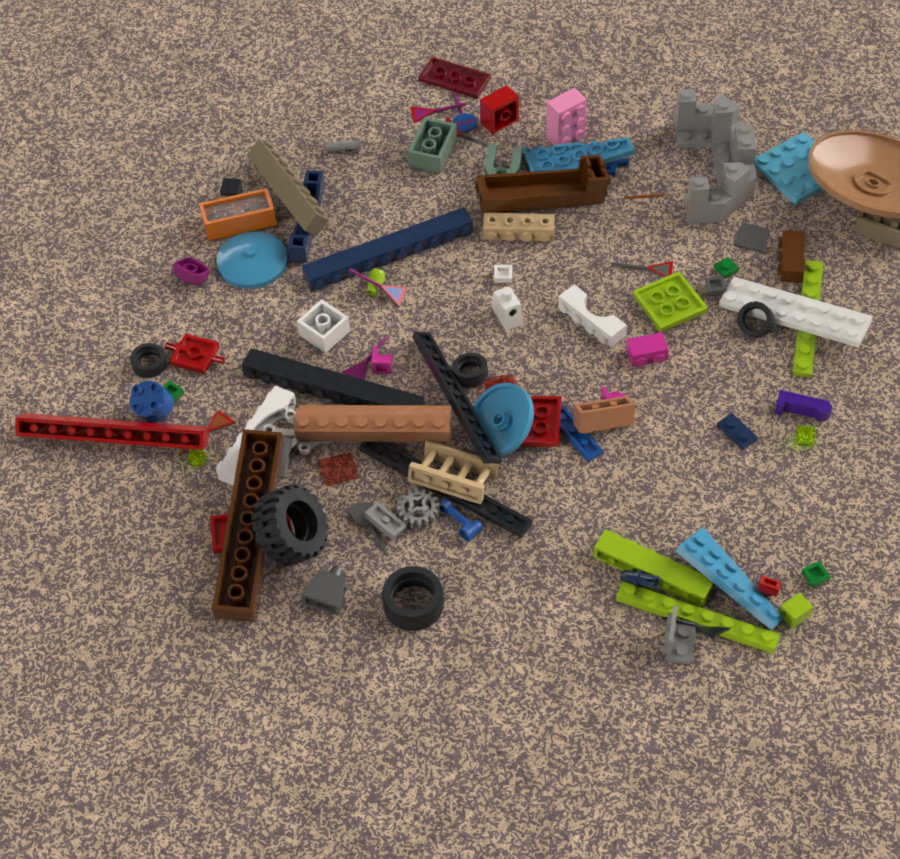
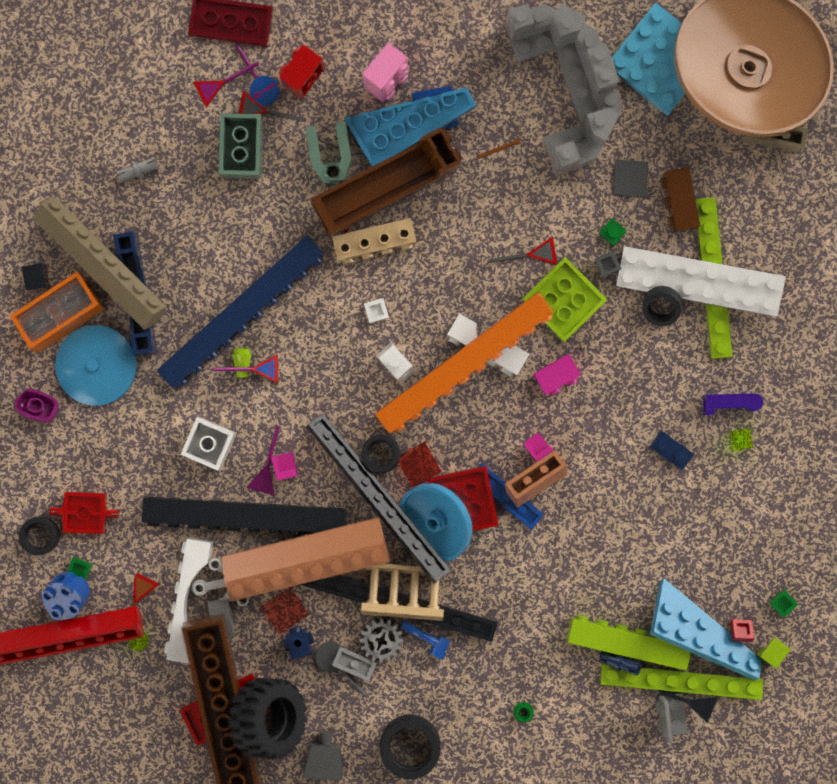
camera: 20 degrees left, 35 degrees up
(341, 489) = (298, 650): none -> dark blue brick
(532, 598) = (523, 718): none -> green plate
(566, 314) = (464, 362): none -> orange brick

